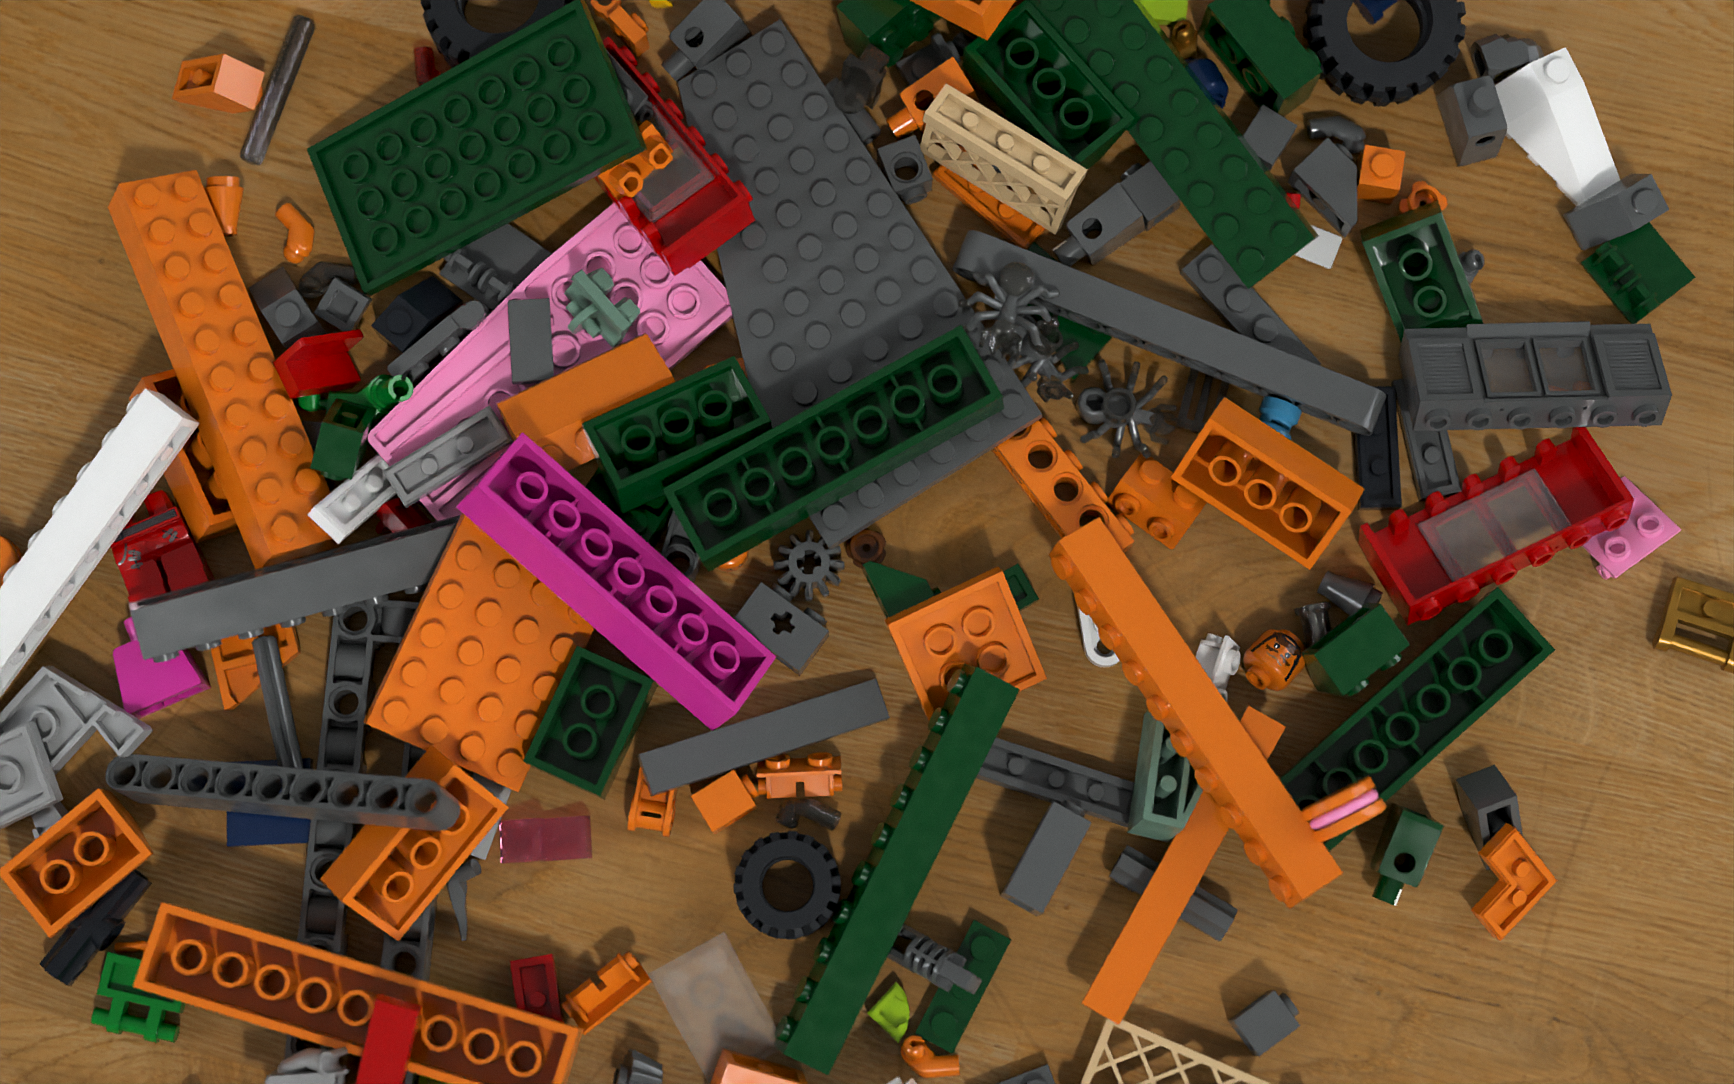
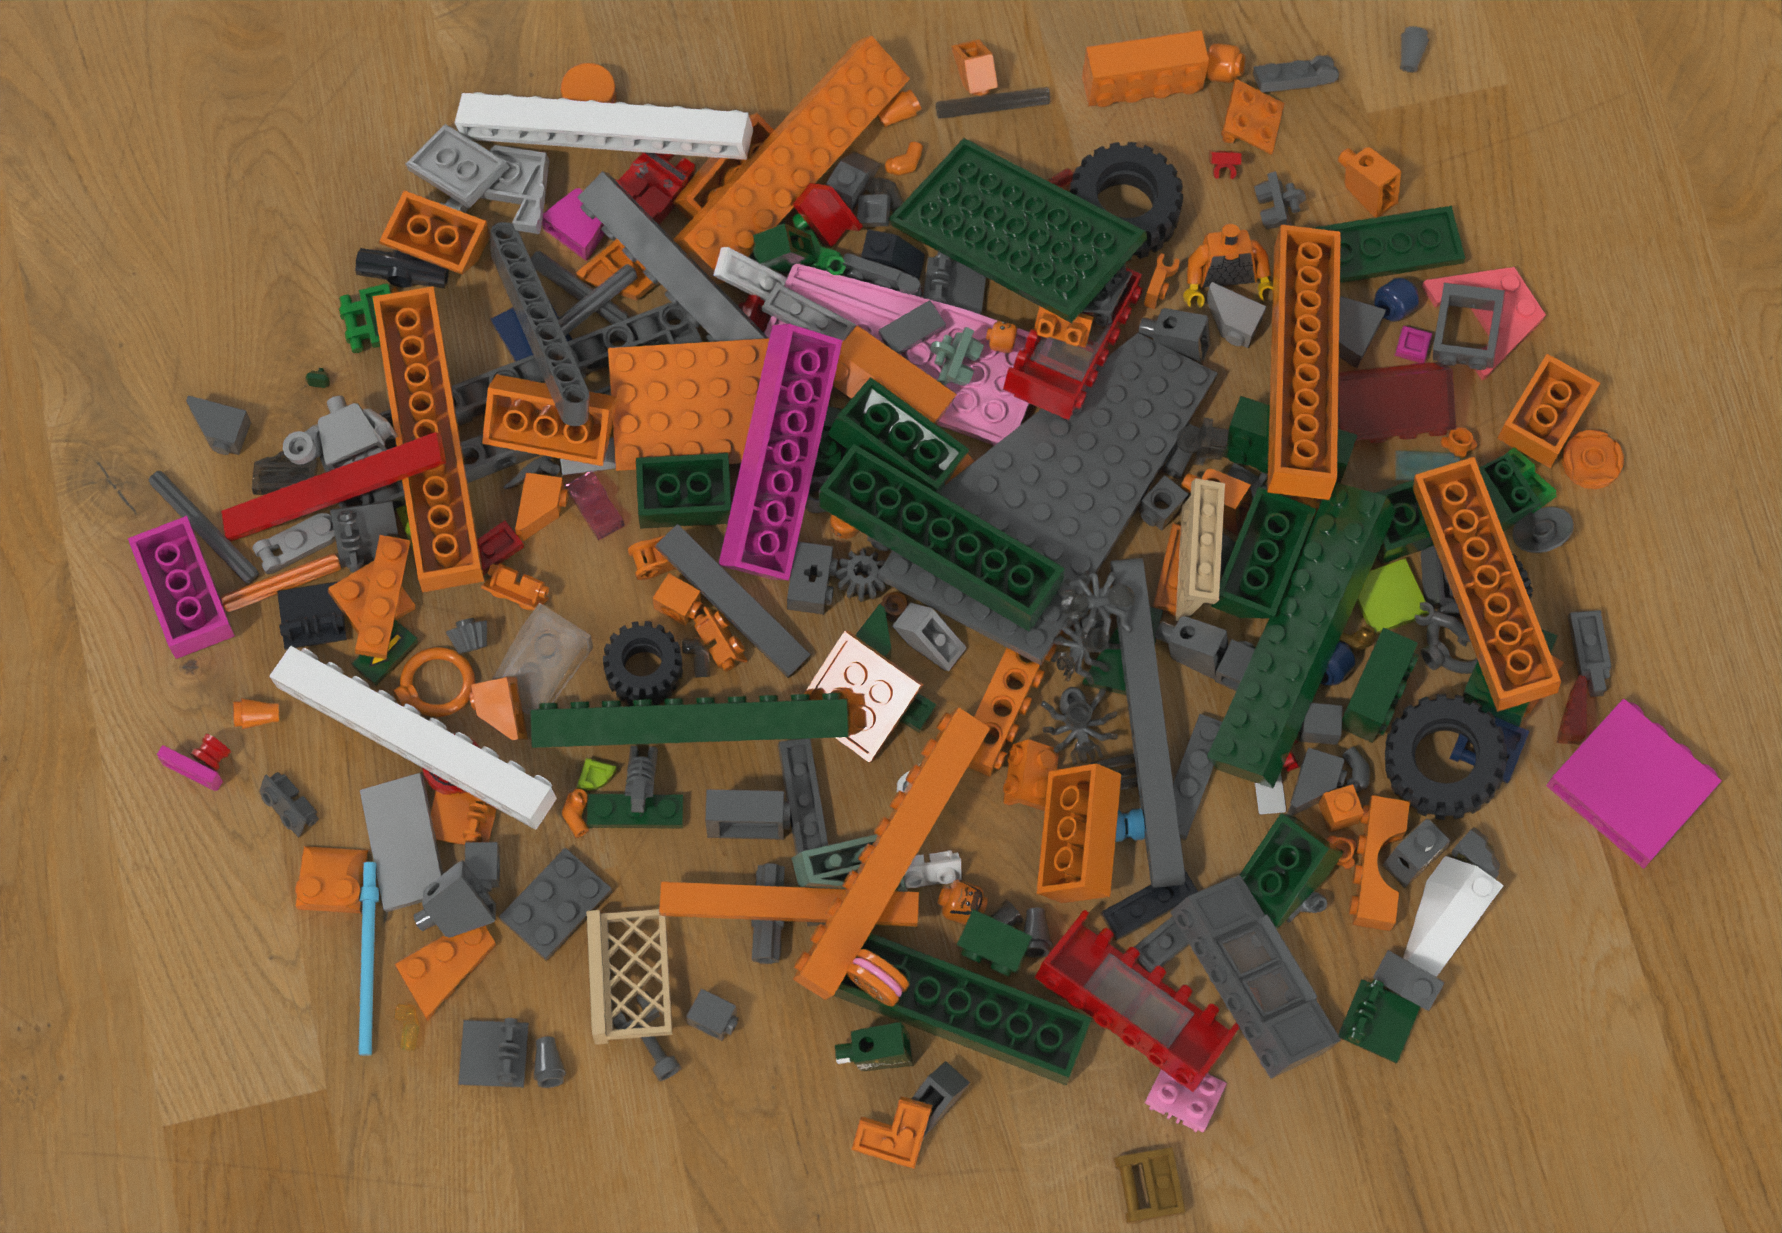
camera: 60 degrees right, 10 degrees down
(241, 718) = (574, 286): none -> dark grey axle
(509, 906) = (540, 503): none -> orange slope
(603, 240) = (1002, 337): none -> orange piece
(926, 526) = (929, 635): none -> light grey slope
(1497, 198) = (1375, 900): none -> orange arch

